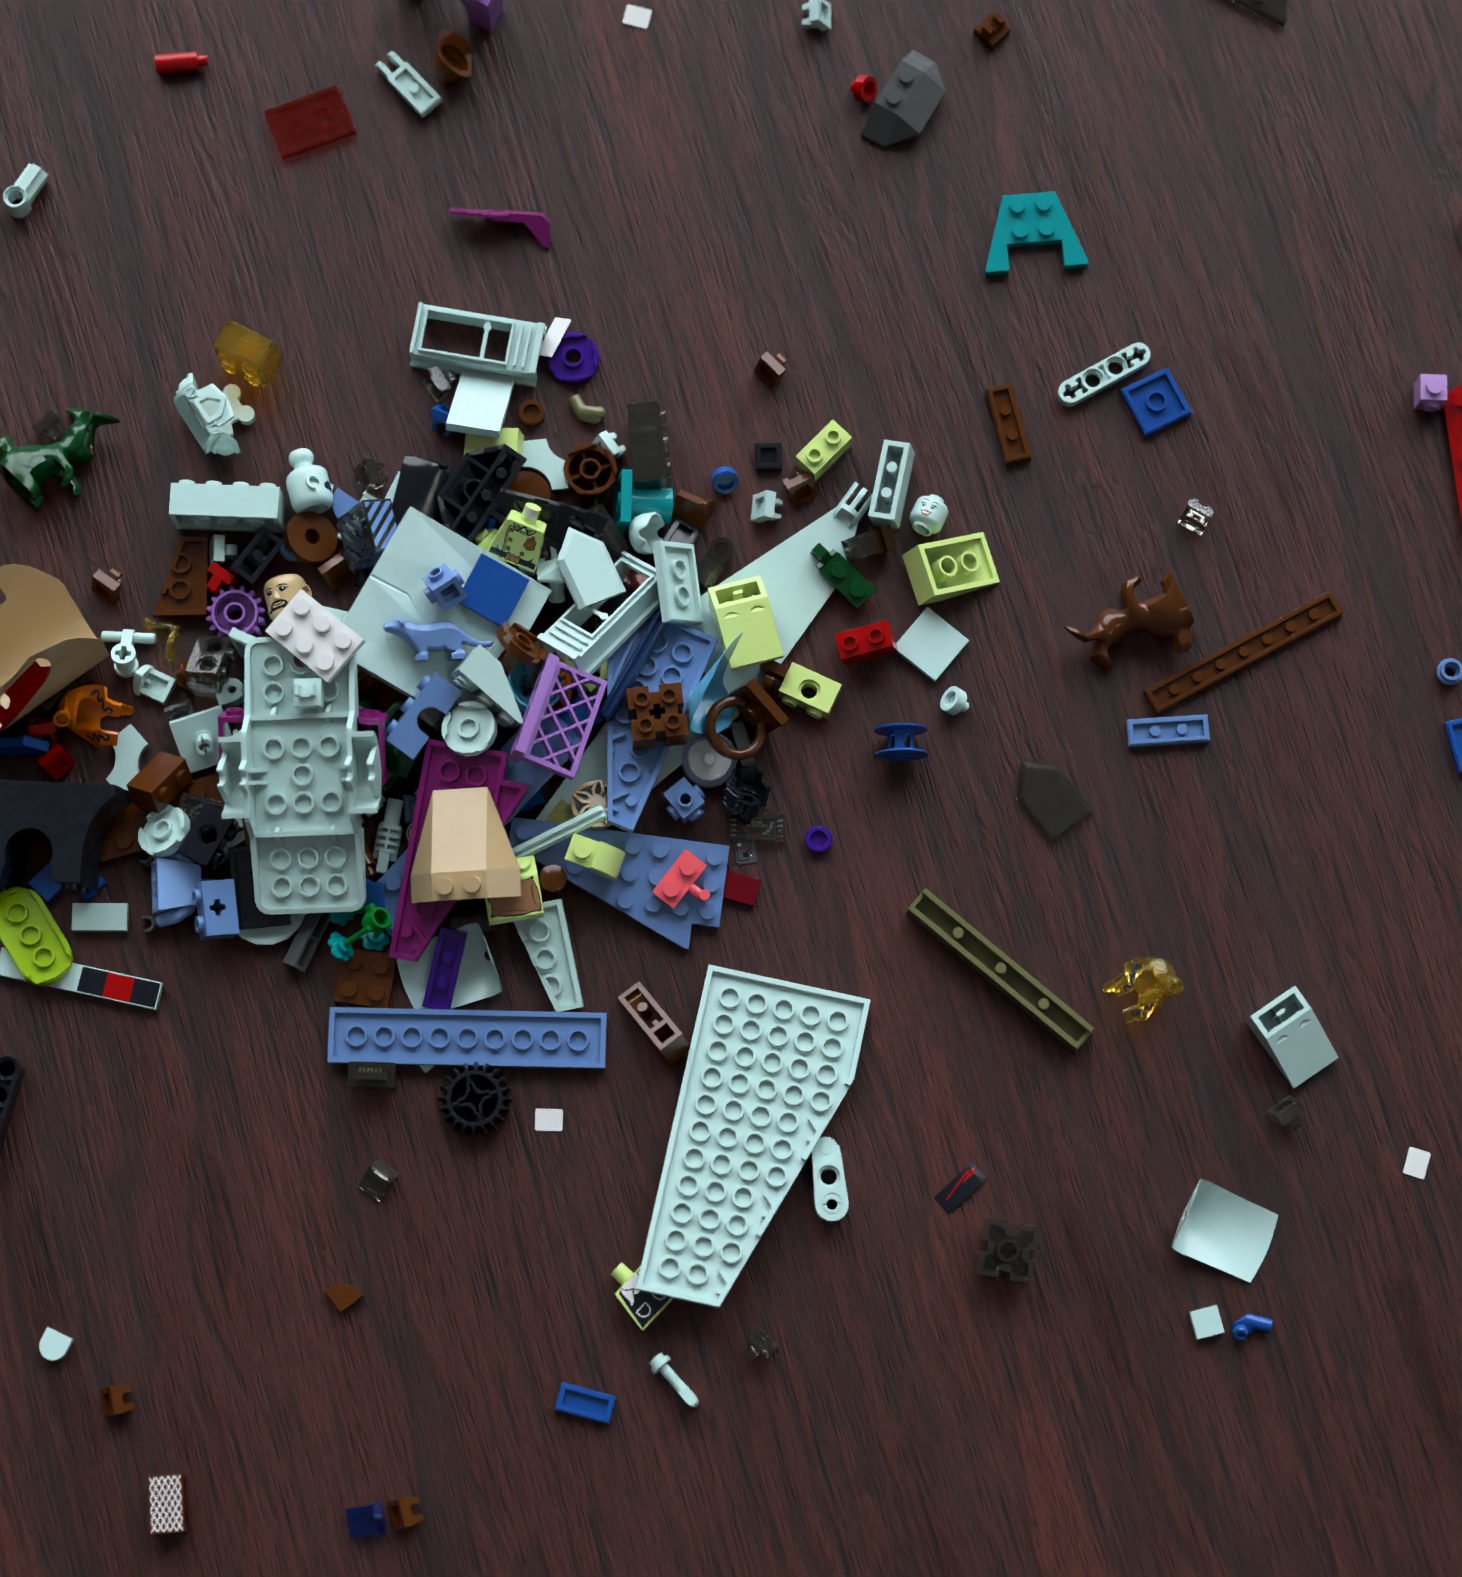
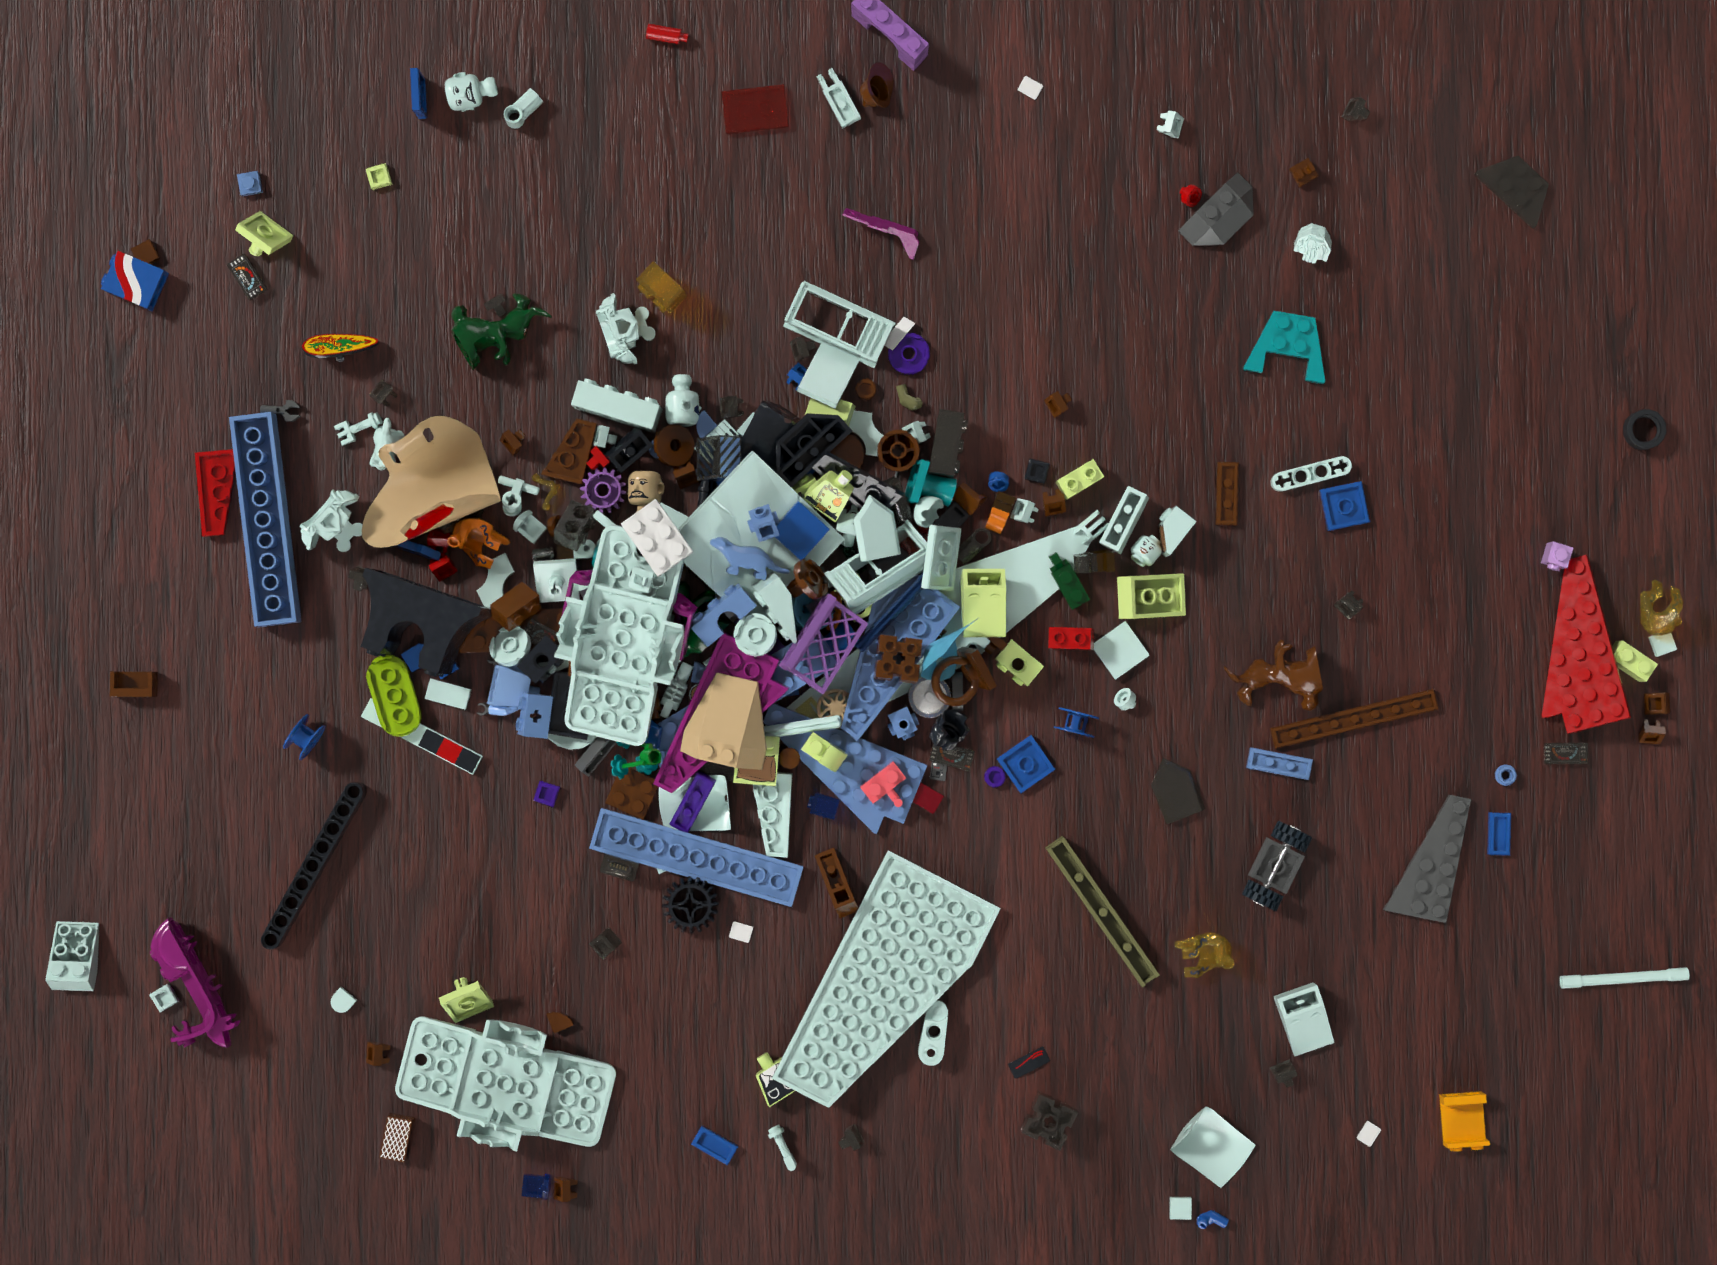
camera: 20 degrees right, 10 degrees up
(215, 1298) = (466, 1000): none -> yellowish green tile
(256, 1009) = (546, 793): none -> dark purple tile
(292, 1391) = (505, 1083): none -> light aqua piece
(612, 930) = (823, 805): none -> clear blue brick
(736, 514) = (1000, 512): none -> leg
(852, 813) = (1025, 764): none -> blue tile
(954, 477) = (1173, 528): none -> light aqua slope
(1027, 106) = (1313, 243): none -> light aqua hair
(1201, 853) = (1276, 865): none -> plate
(1395, 817) = (1431, 874): none -> dark grey wing

